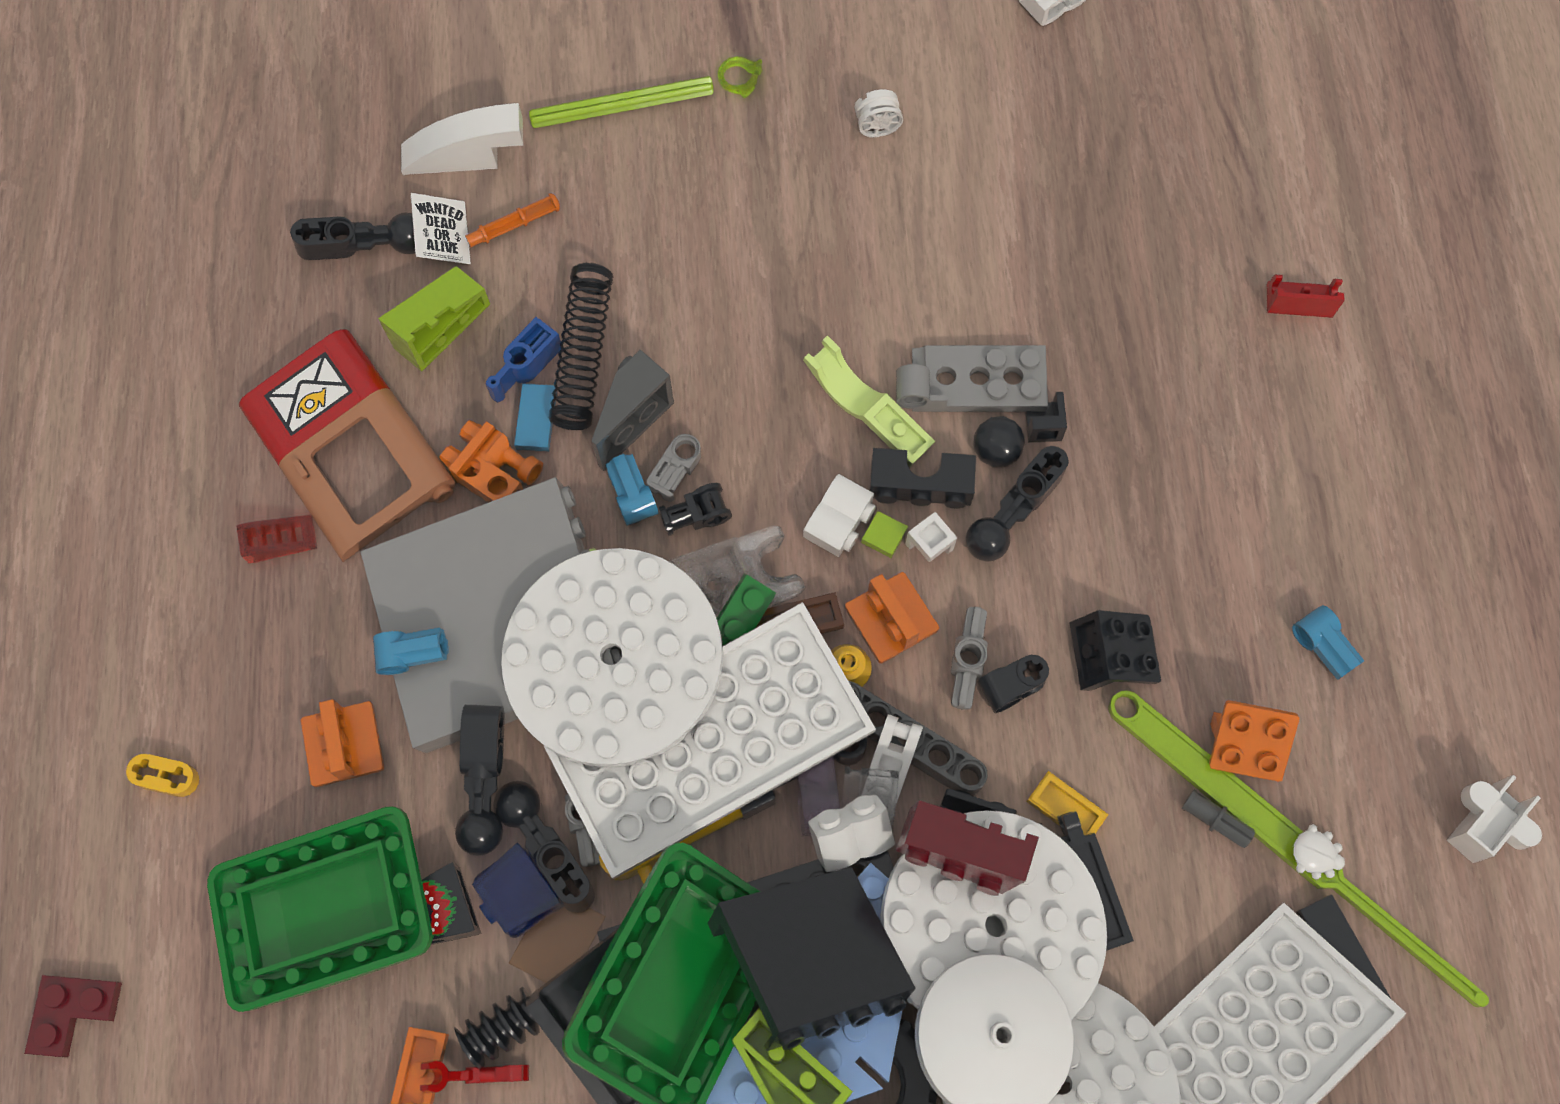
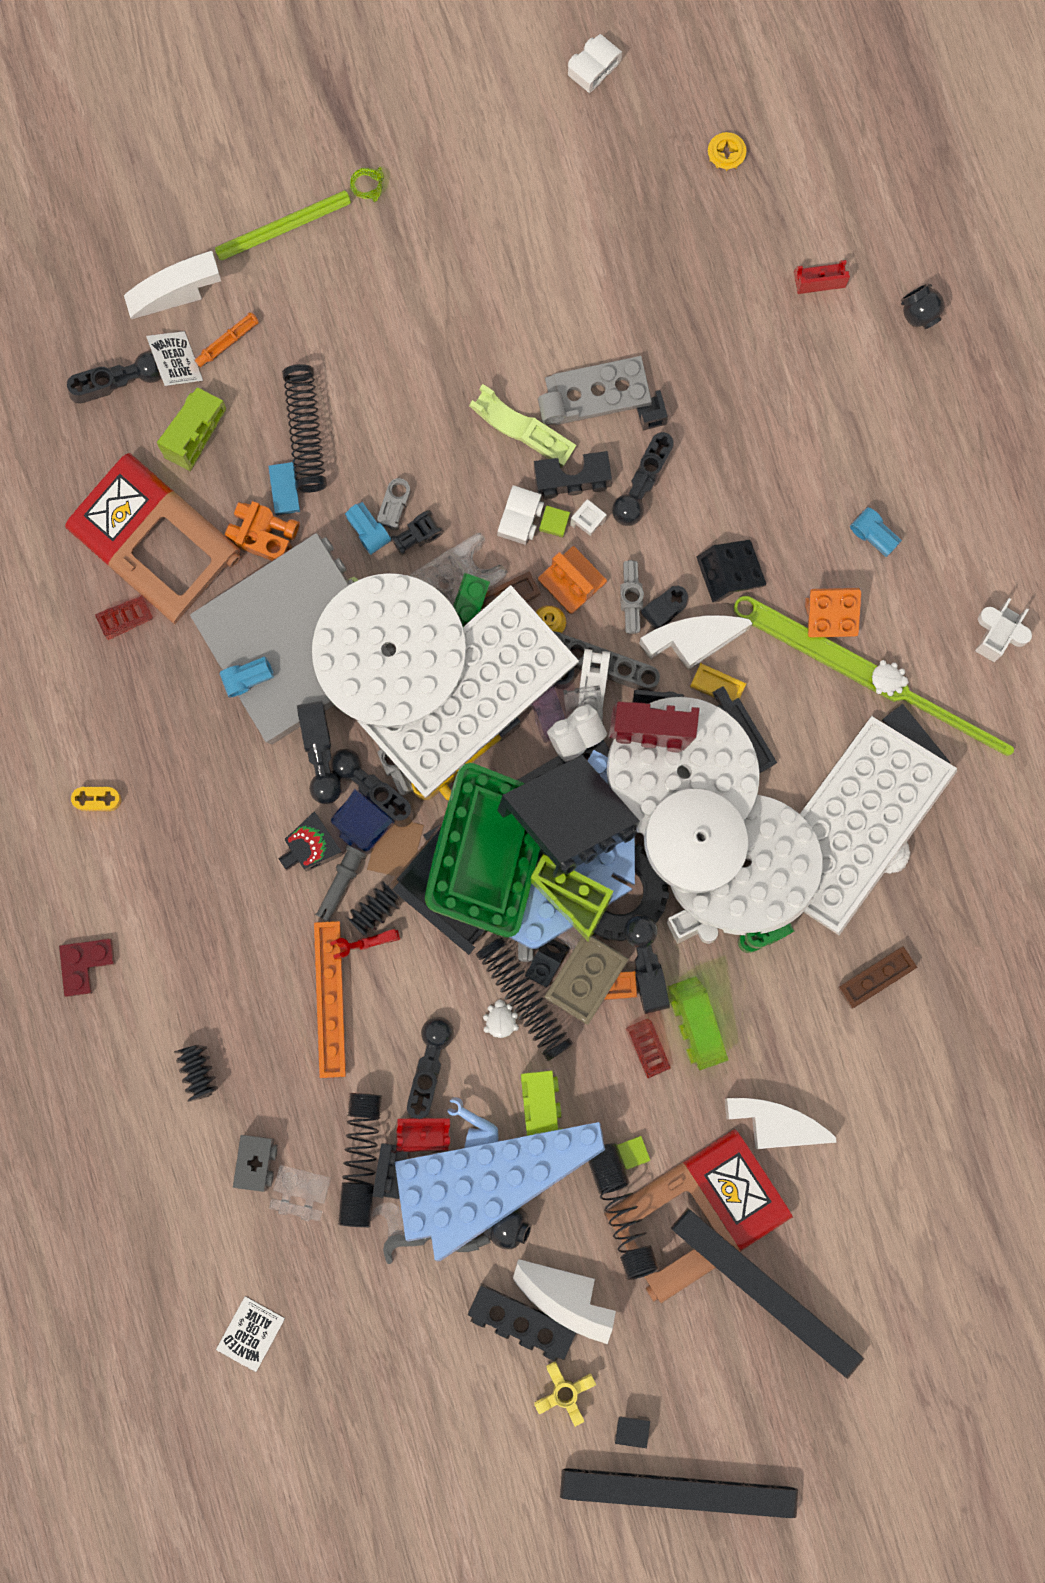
camera: 15 degrees left, 10 degrees up
(319, 909) = (233, 861): green wedge -> none
(341, 742) = (213, 750): orange bracket -> none
(475, 961) = (345, 872): none -> dark grey pin
(535, 346) = (270, 435): blue piece -> none
(634, 402) = (355, 463): dark grey slope -> none
(878, 112) = (481, 196): white wheel -> none
(999, 441) = (621, 435): black hair -> none
(1047, 732) = (694, 637): none -> white slope
(1216, 120) = (735, 145): none -> yellow gear
(1219, 819) = (820, 670): dark grey axle -> none
(1438, 358) = (923, 306): none -> black piece

